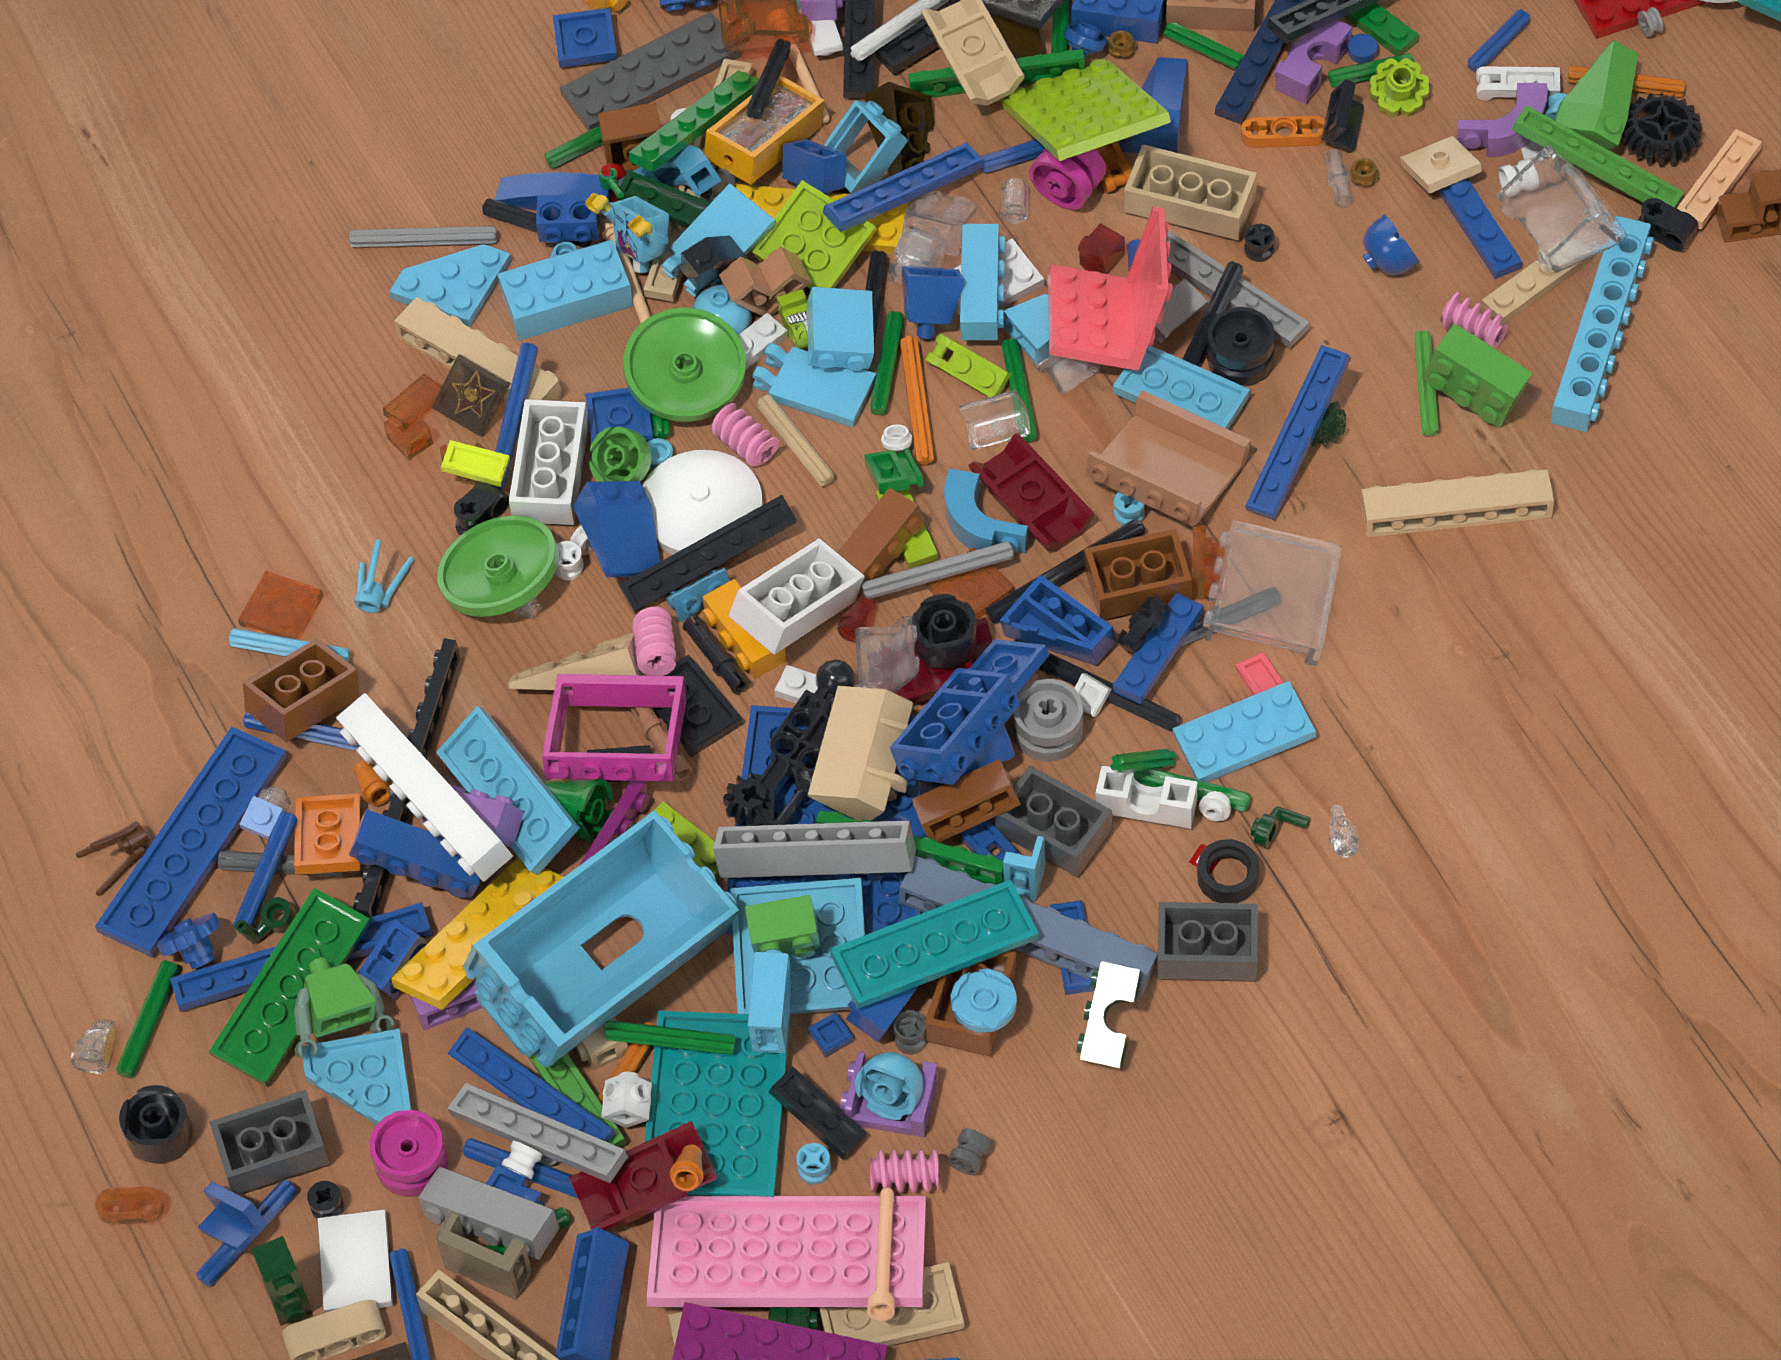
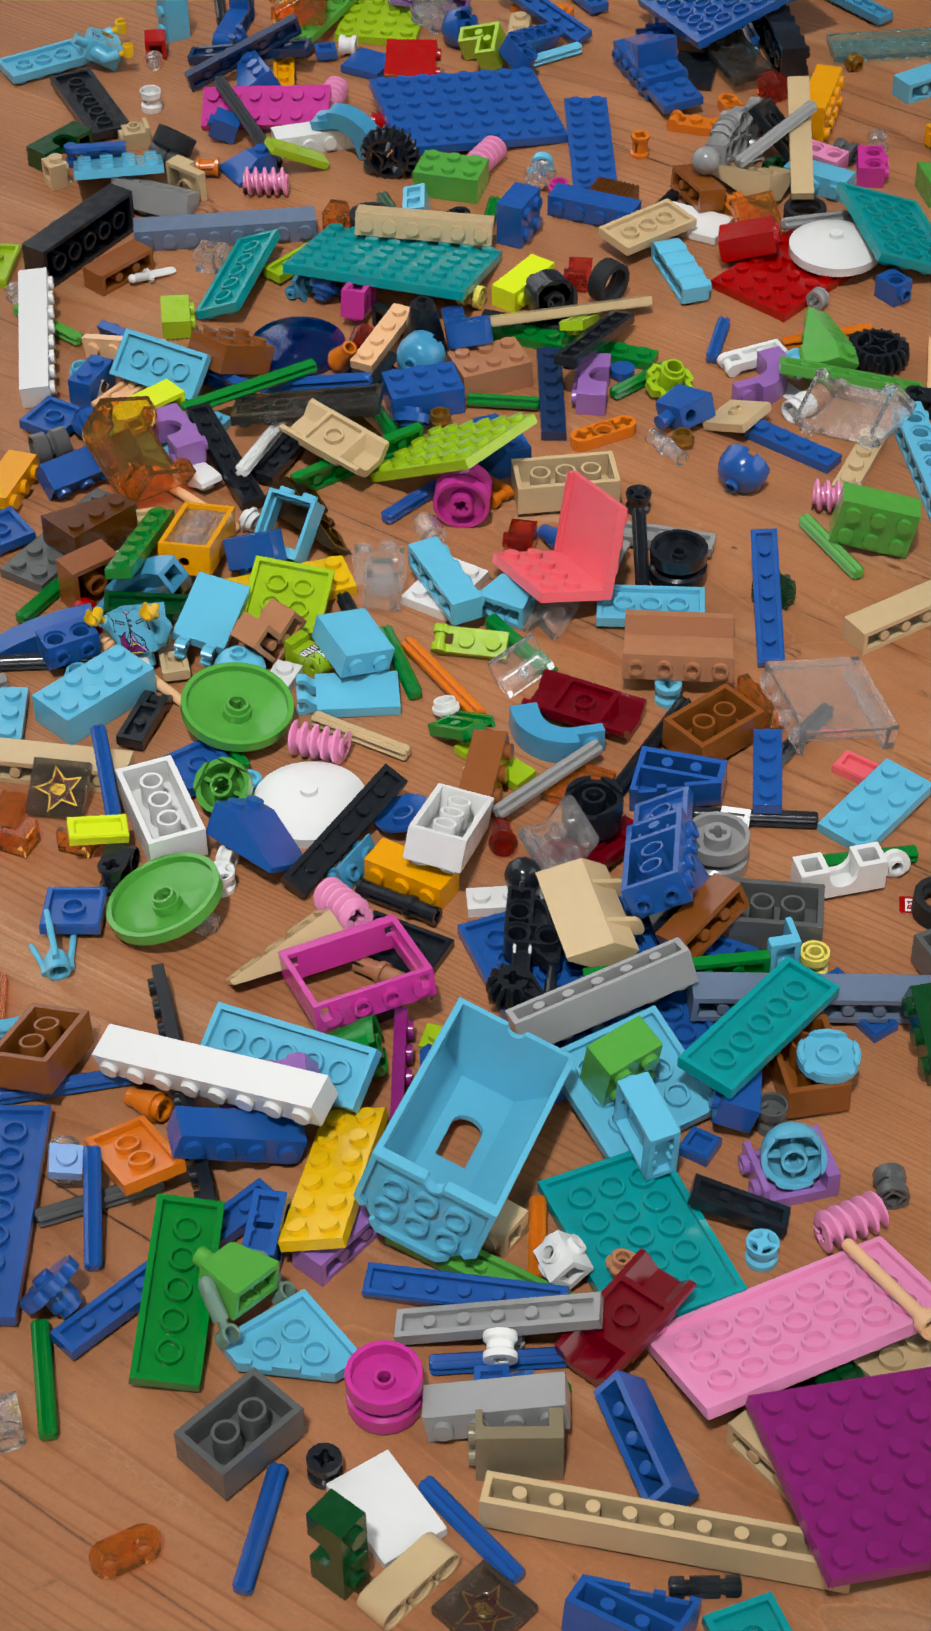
camera: 30 degrees left, 15 degrees down
(156, 1124) = (113, 1463): black brick -> none
(233, 1220) = (241, 1515): blue panel -> none
(269, 917) = (115, 1238): dark green plate -> none
(417, 541) = (75, 909): none -> blue plate
(598, 338) = (143, 719): none -> black plate
(611, 183) = (92, 602): green hand -> none
(666, 71) = (87, 522): none -> reddish brown wedge
(669, 1037) = (568, 1193): green axle -> none
(670, 1118) = (614, 1262): none -> nougat plate
(688, 1170) = (669, 1285): orange cone -> none
(708, 259) = (213, 628): black slope -> none
(768, 79) = (183, 502): black axle -> none
(773, 552) = (400, 813): none -> blue dish
(837, 114) = (249, 519): none -> white plate
(903, 187) = (338, 541): blue tile -> none
(930, 296) = (413, 601): blue torso -> none
(1059, 892) = (815, 956): none -> light yellow wheel
(1143, 760) = (820, 844): green axle -> none
(1146, 617) = (744, 755): black plate -> none
(1343, 117) = (641, 405): black panel -> none
(1384, 133) = (683, 407): none -> blue torso
(1749, 37) = (893, 287): none -> blue brick

